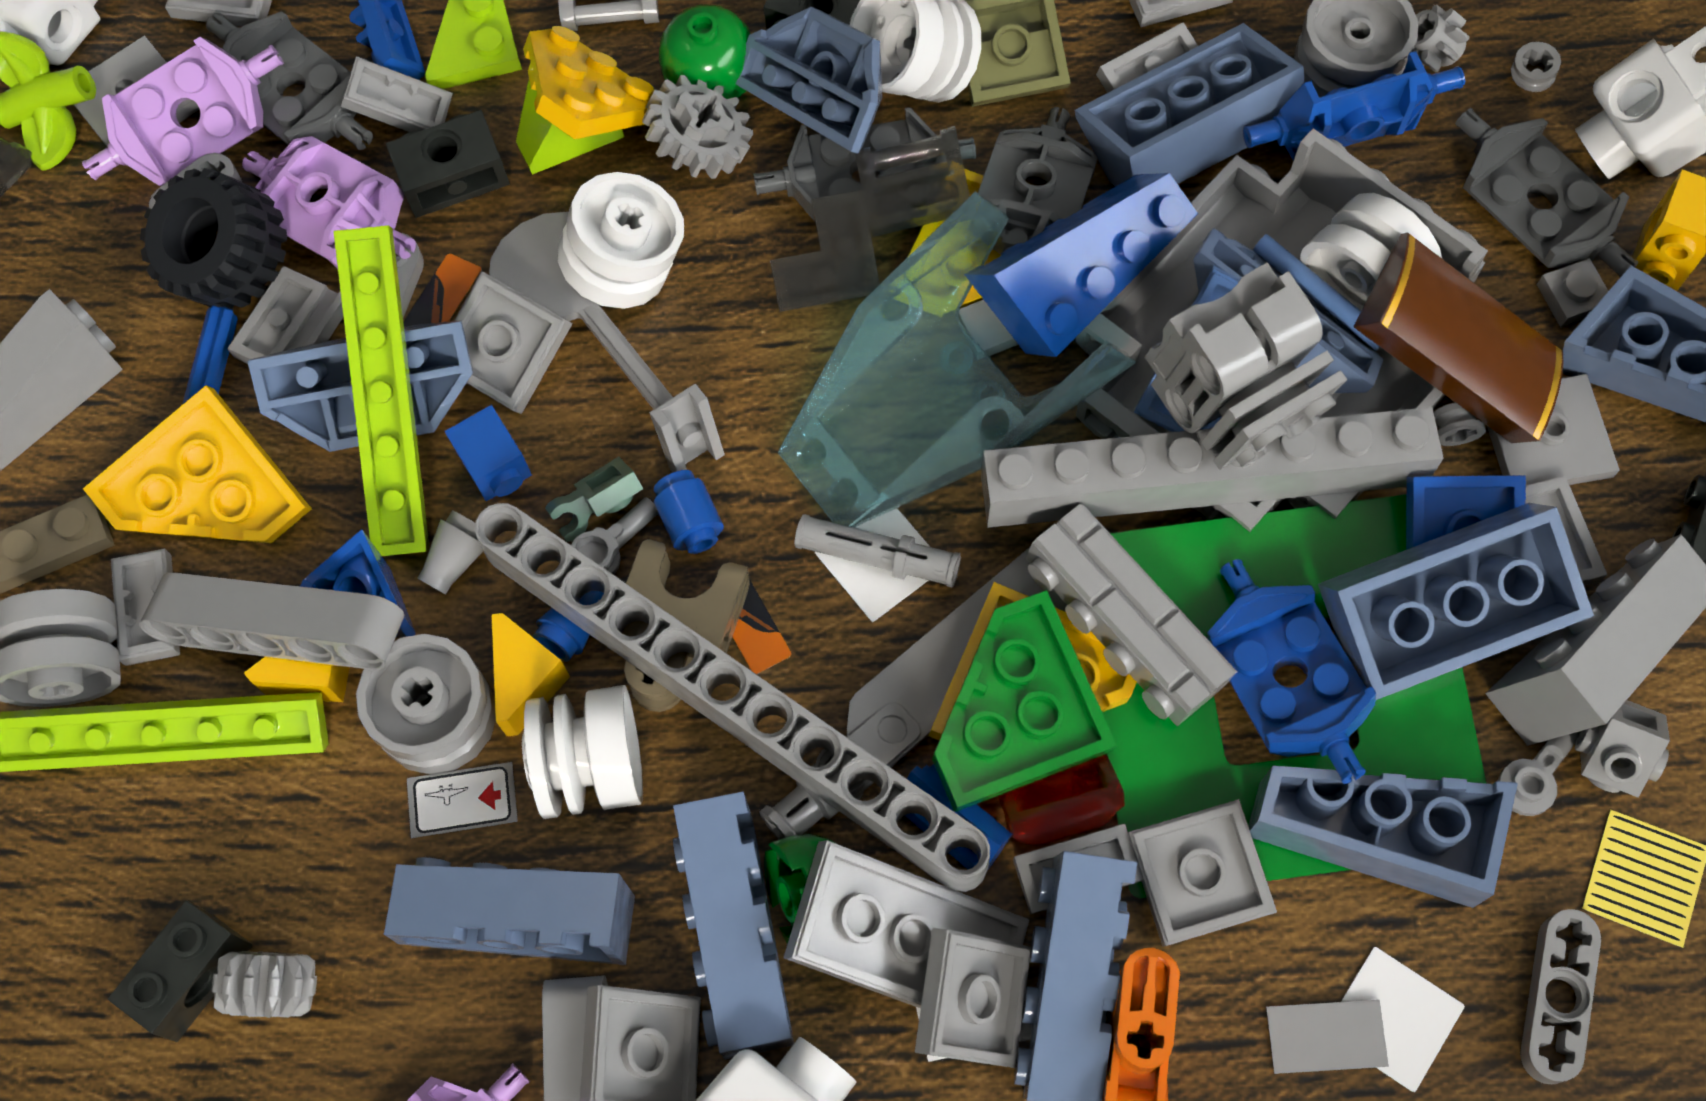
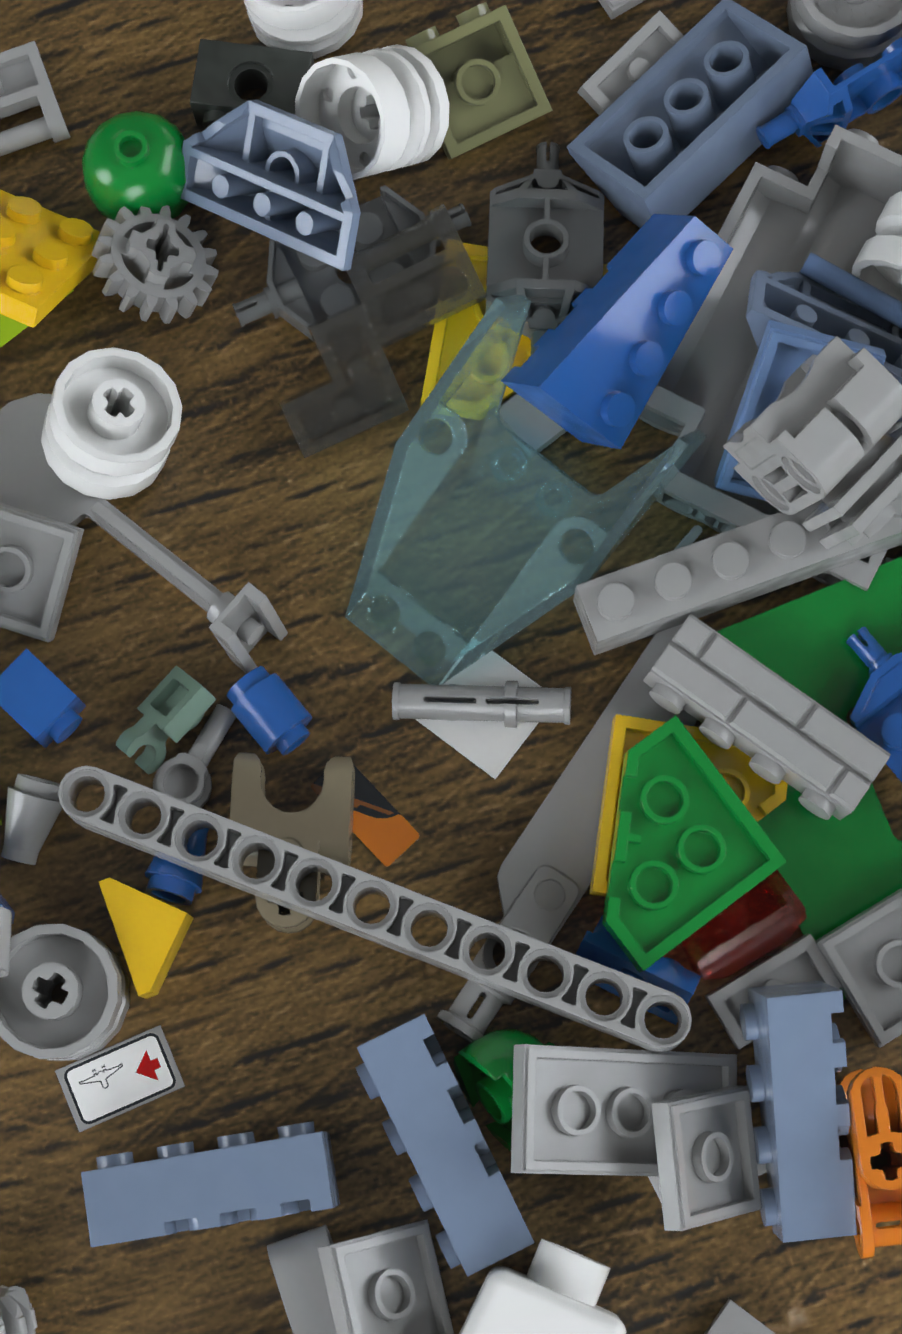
camera: 15 degrees left, 10 degrees up
(582, 752) = (239, 1005): white wheel -> none

